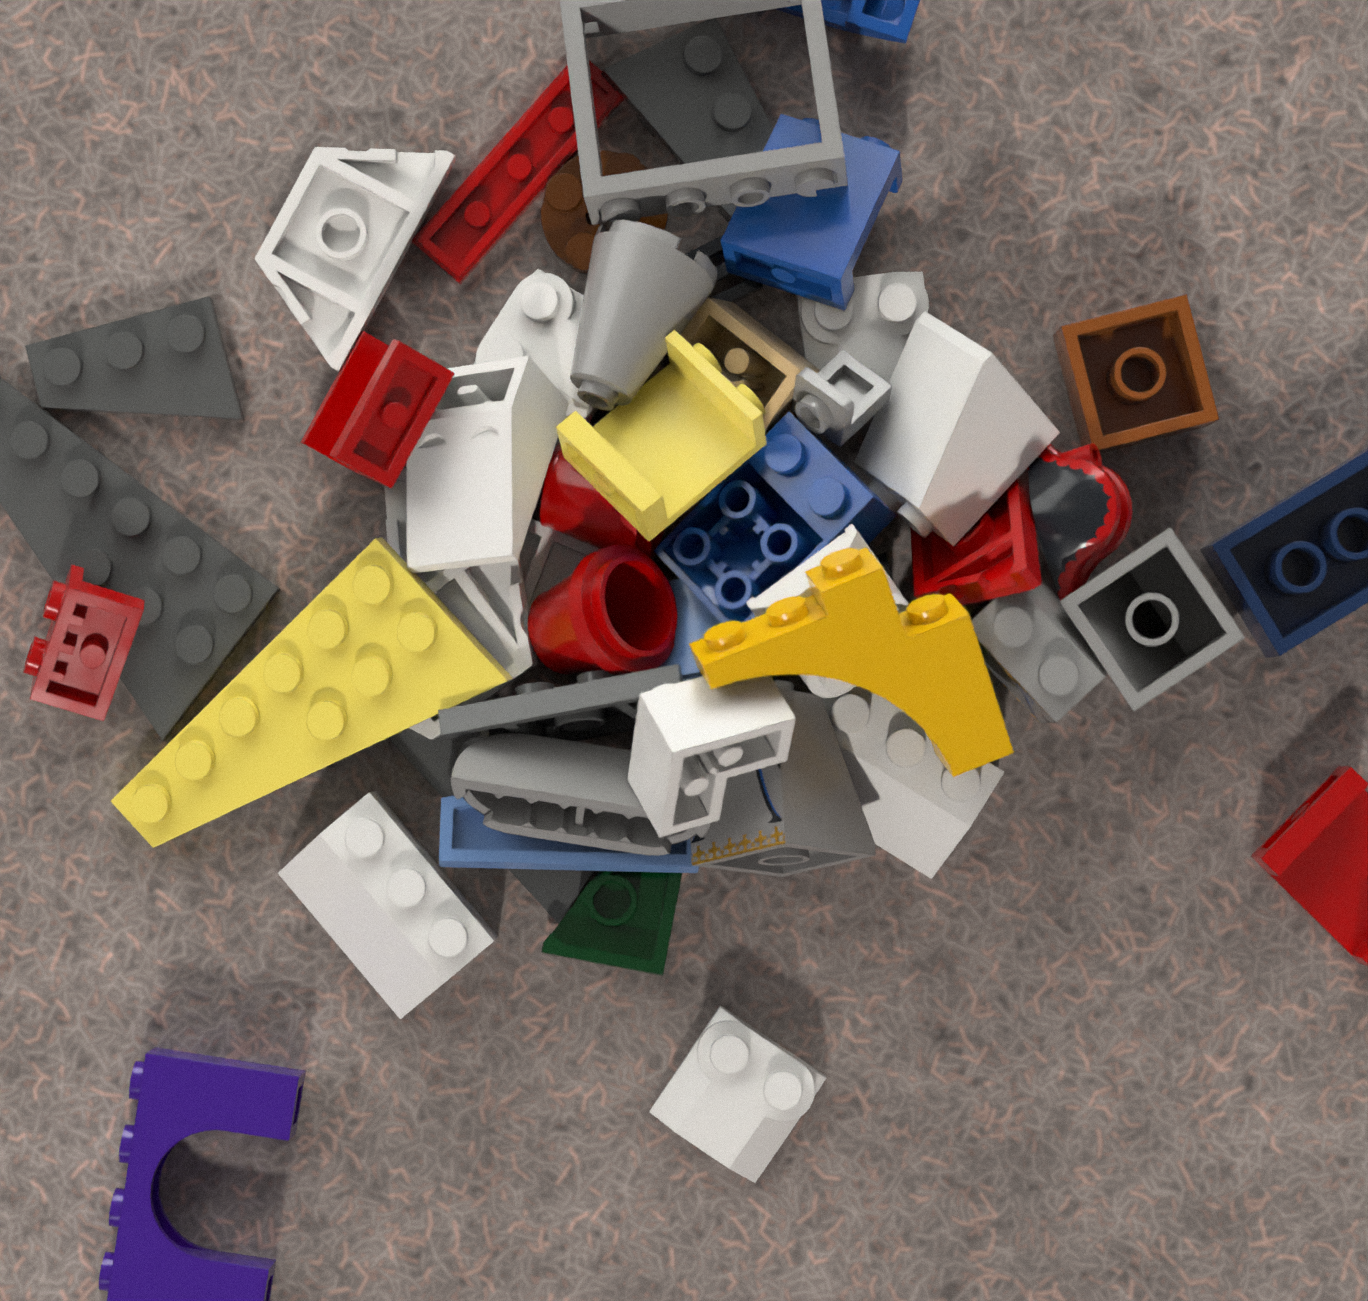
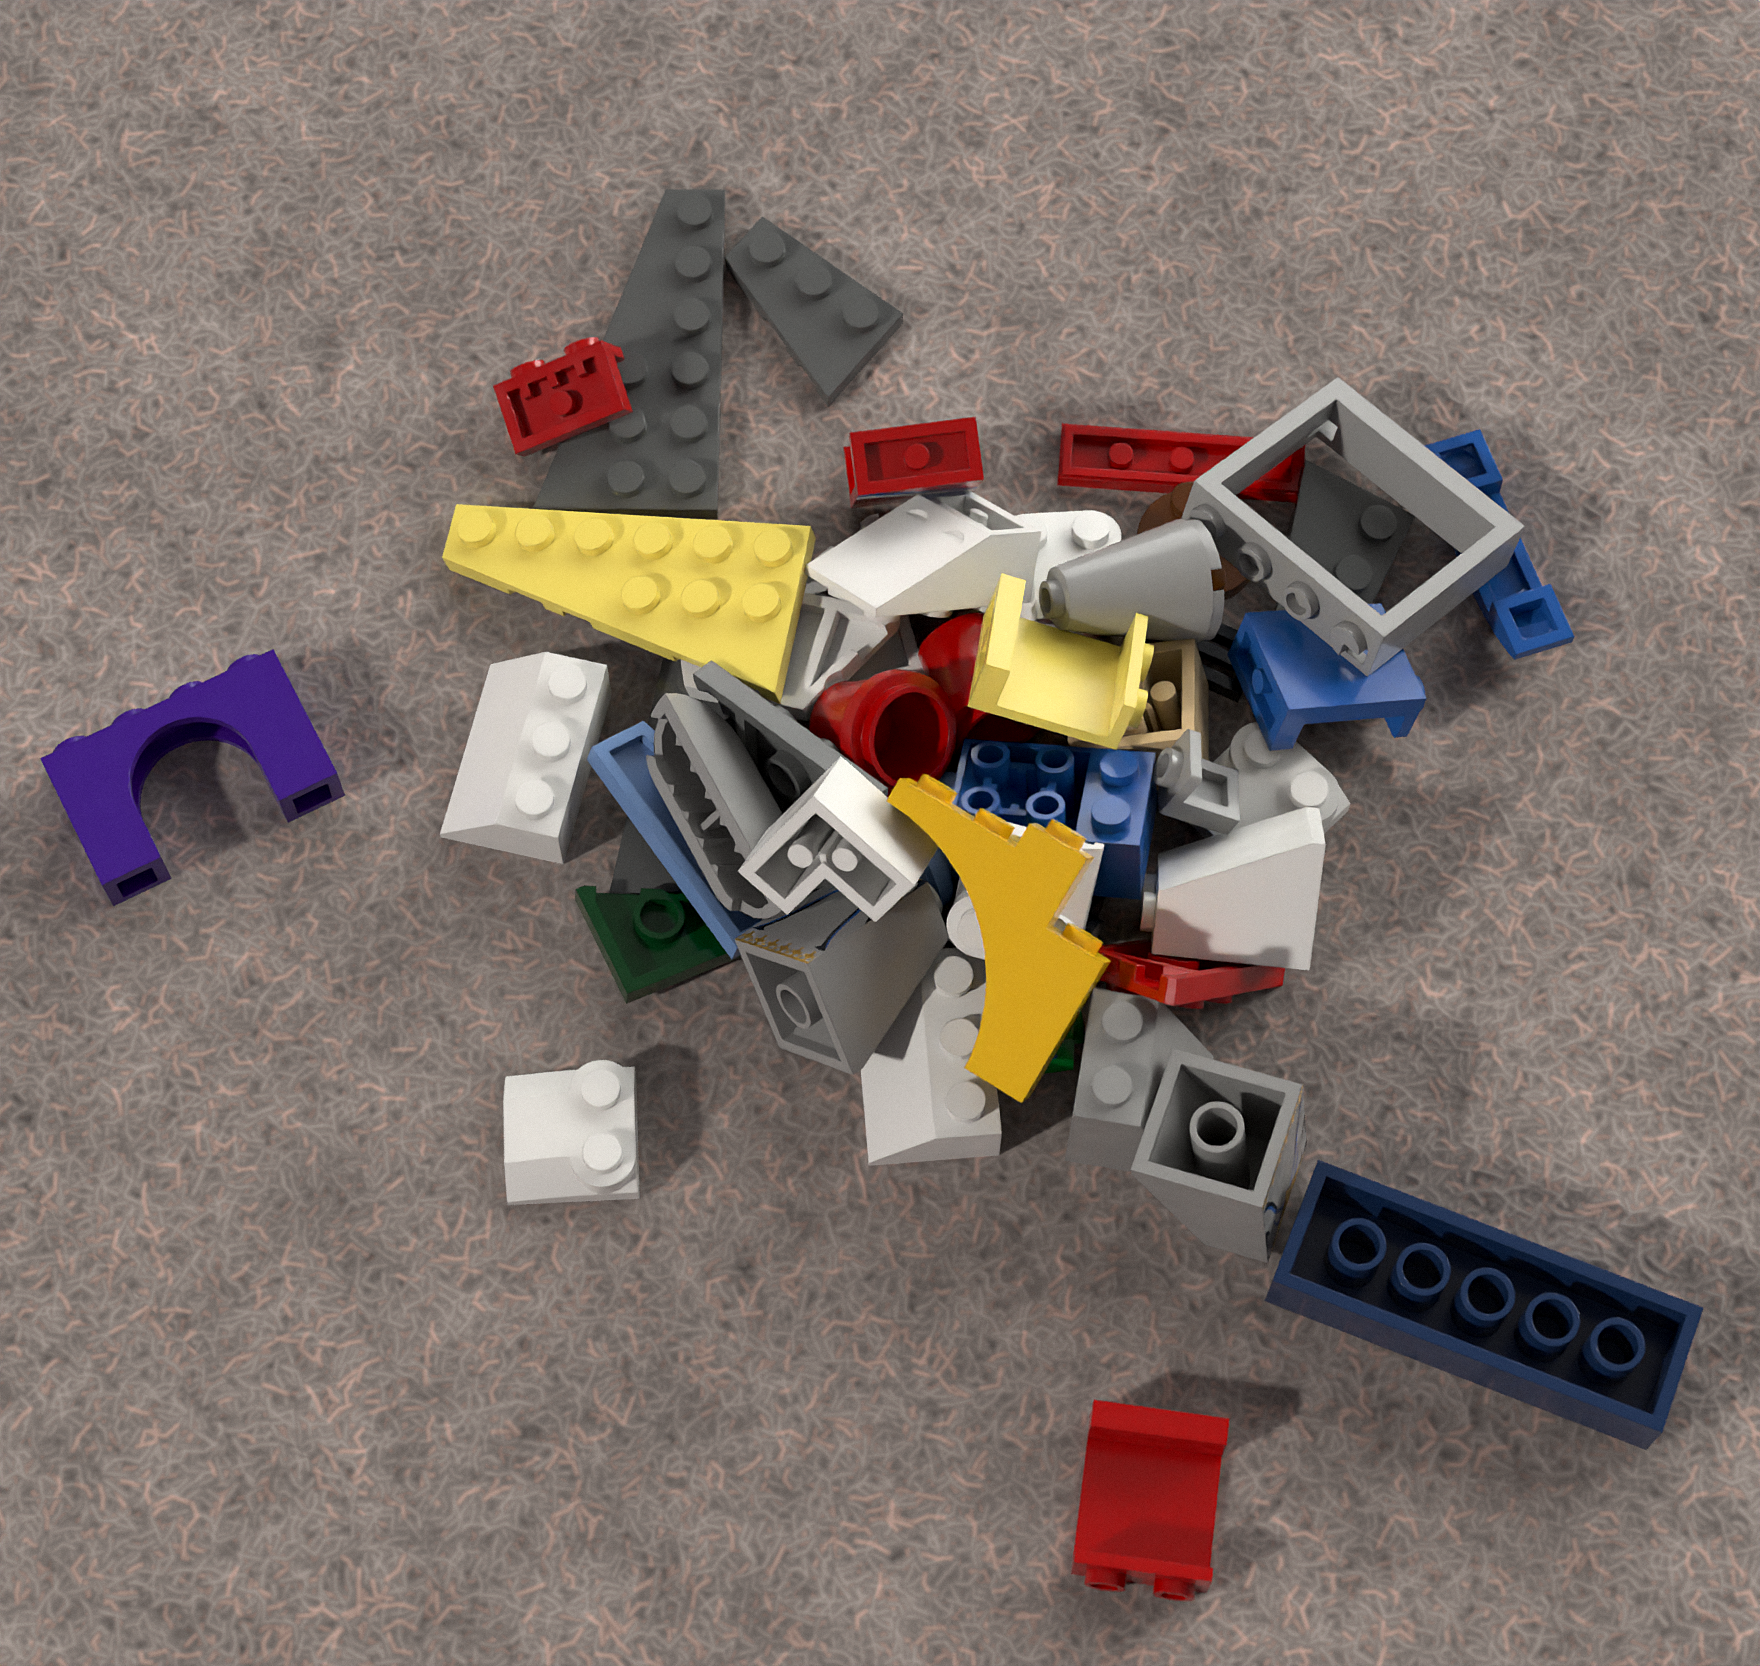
camera: 55 degrees right, 20 degrees down
(347, 237) = (1032, 375): white wing -> none
(1078, 512) = (1259, 1023): hat -> none
(1136, 375) = (1403, 1014): dark orange brick -> none

